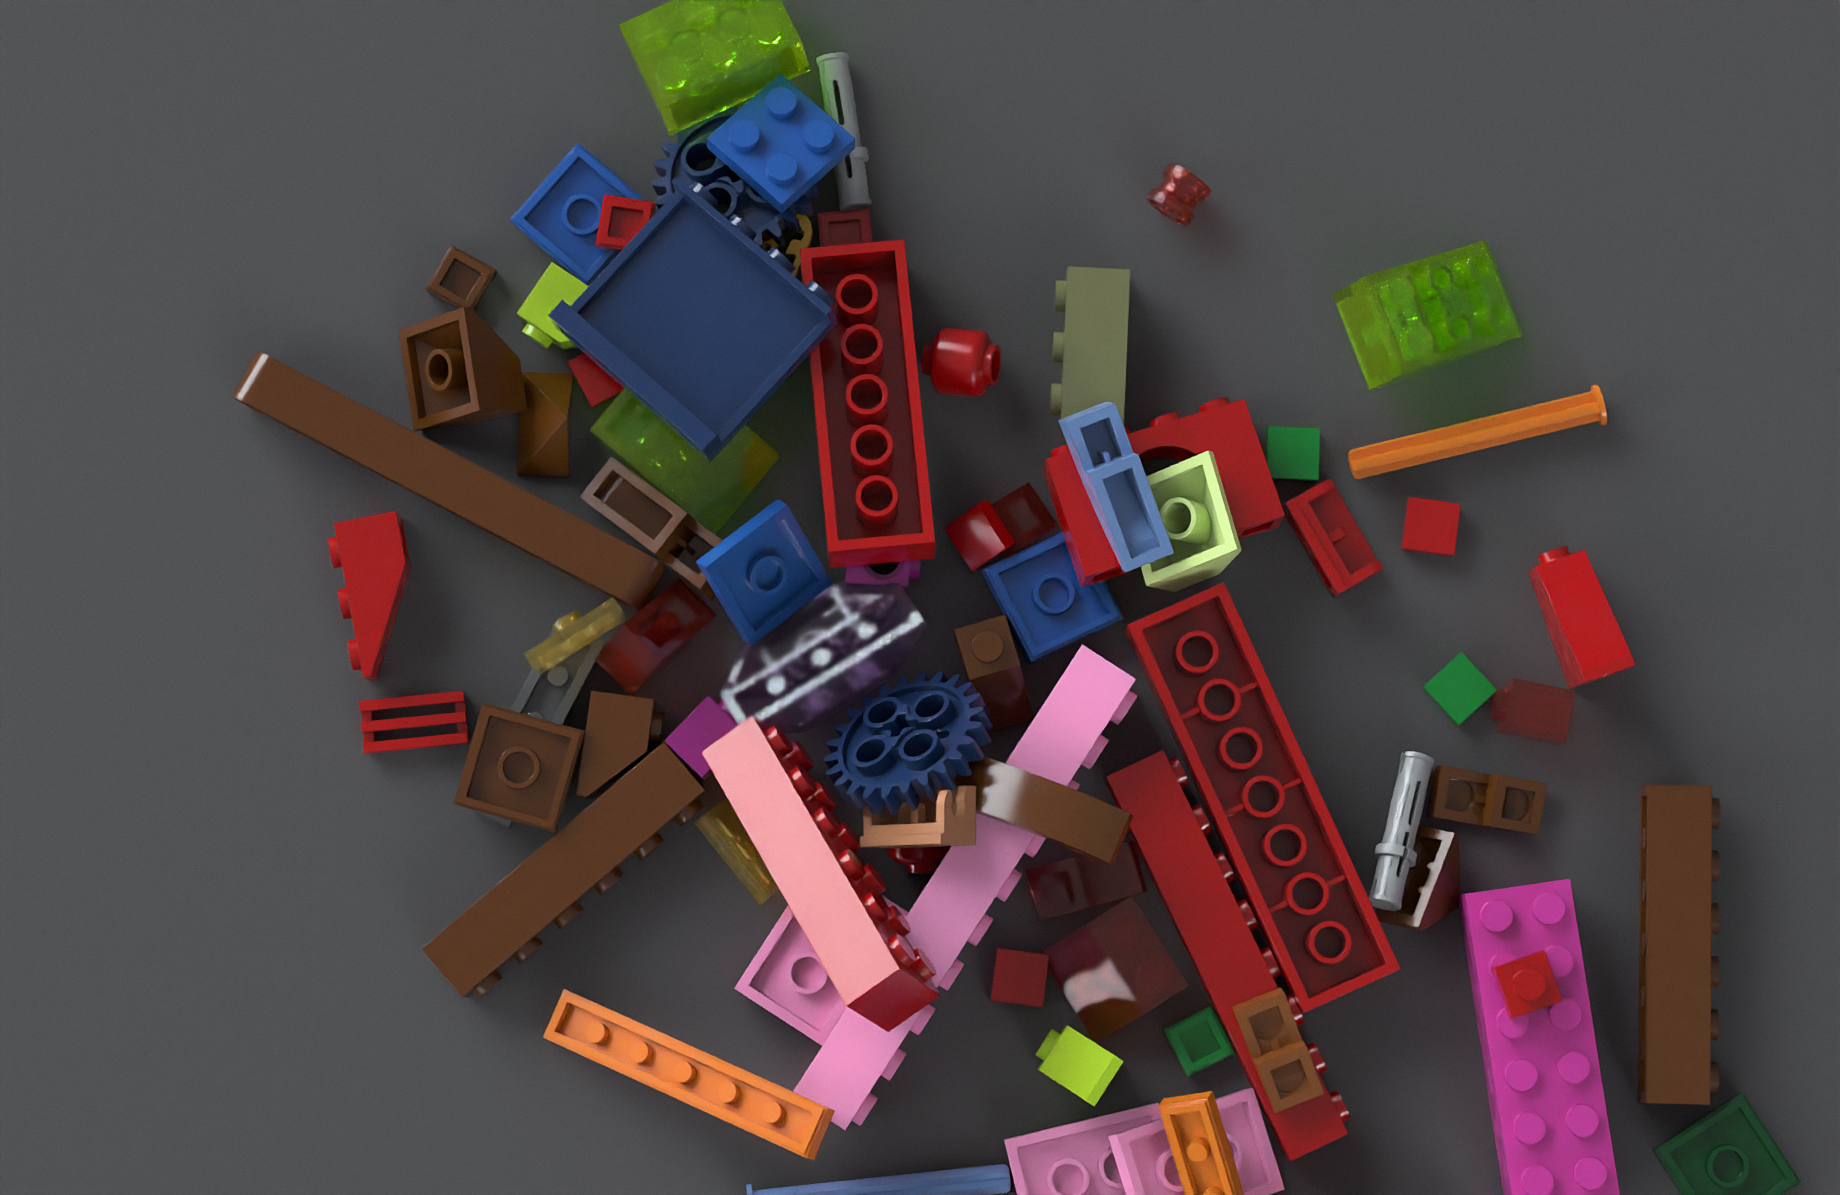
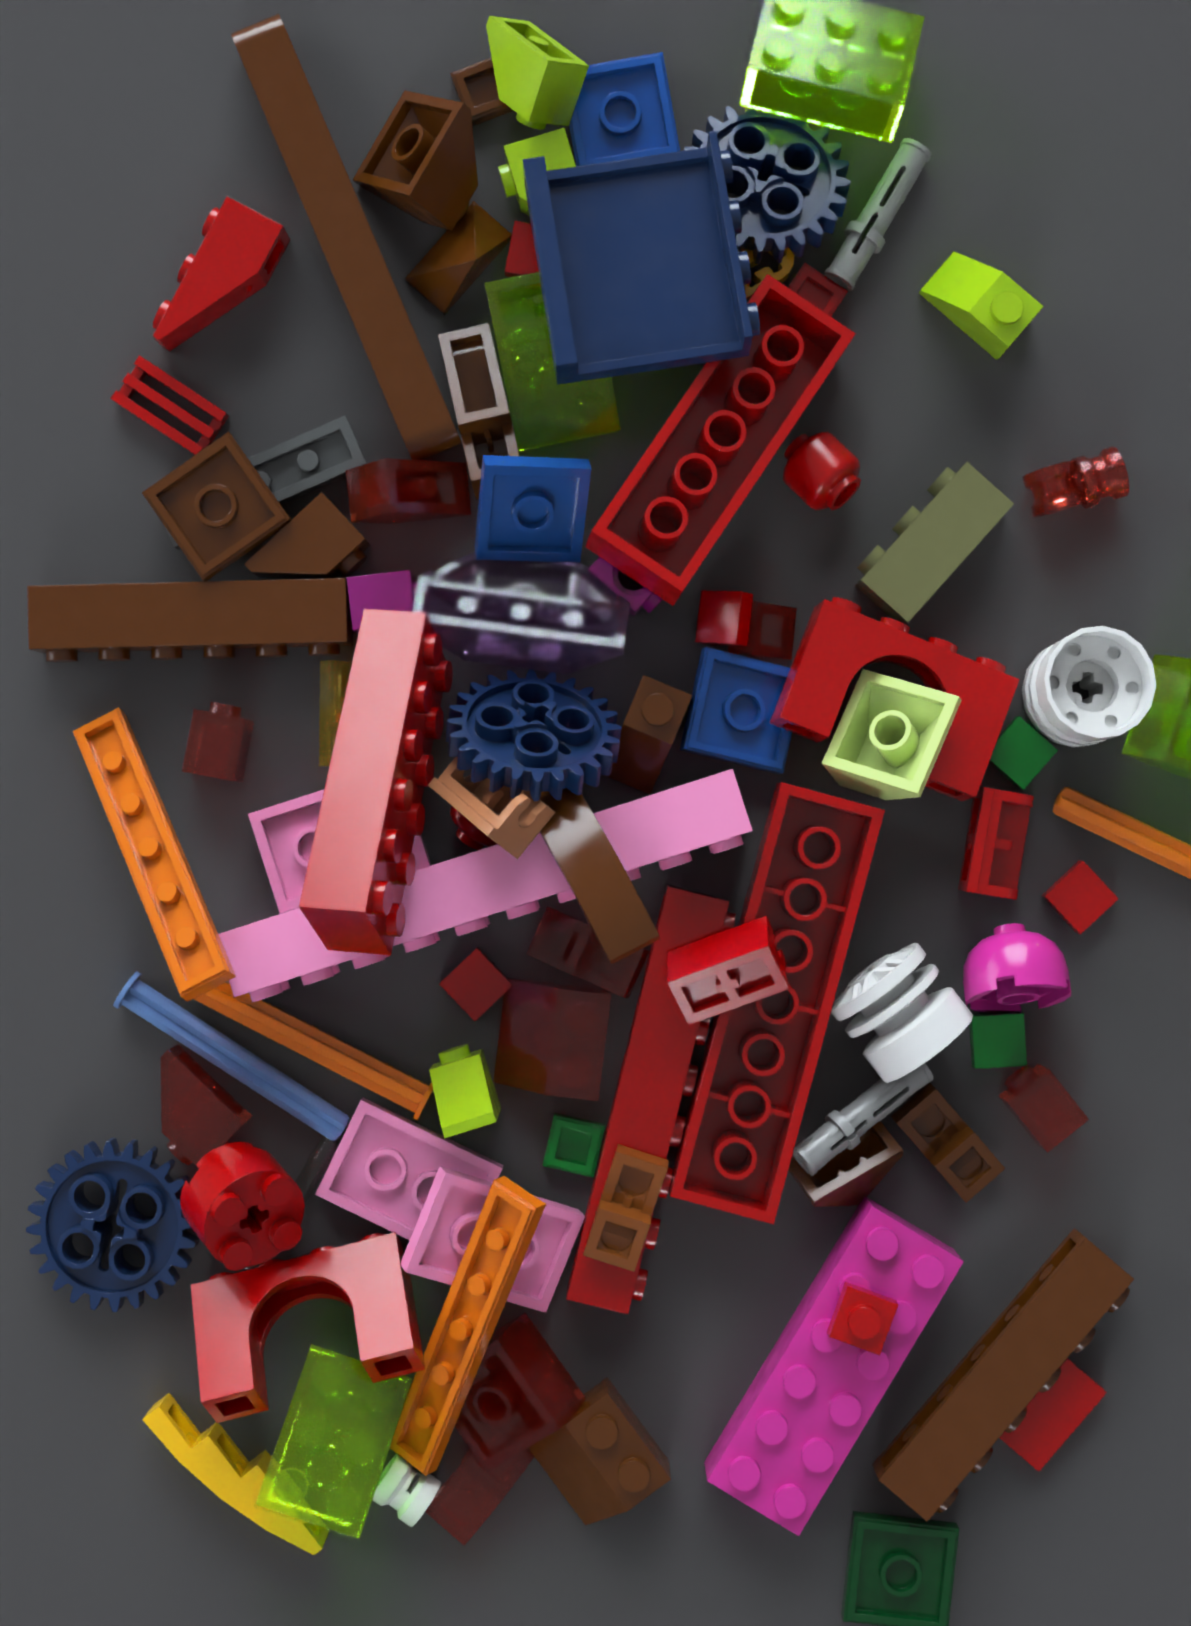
camera: 45 degrees right, 5 degrees up
(492, 237) = (534, 72): none -> lime slope
(574, 633) = (344, 436): clear yellow plate -> none
(621, 221) = (644, 138): red tile -> none
(666, 951) = (218, 743): none -> clear red brick
(780, 143) = (821, 177): blue plate -> none
(935, 1127) = (320, 1048): none -> orange axle
(977, 135) = (981, 302): none -> lime slope
(1116, 485) = (863, 665): medium blue slope -> none
(1150, 232) = (1053, 488): none -> clear red wheel
(1204, 802) = (726, 970): none -> red hinge
(1308, 334) = (1106, 665): none -> white wheel
(1364, 727) = (906, 1019): none -> white wheel
(1425, 624) = (1015, 970): none -> dark pink cylinder
(1578, 617) = (1138, 1065): red slope -> none
(1742, 944) = (1054, 1415): none -> red tile

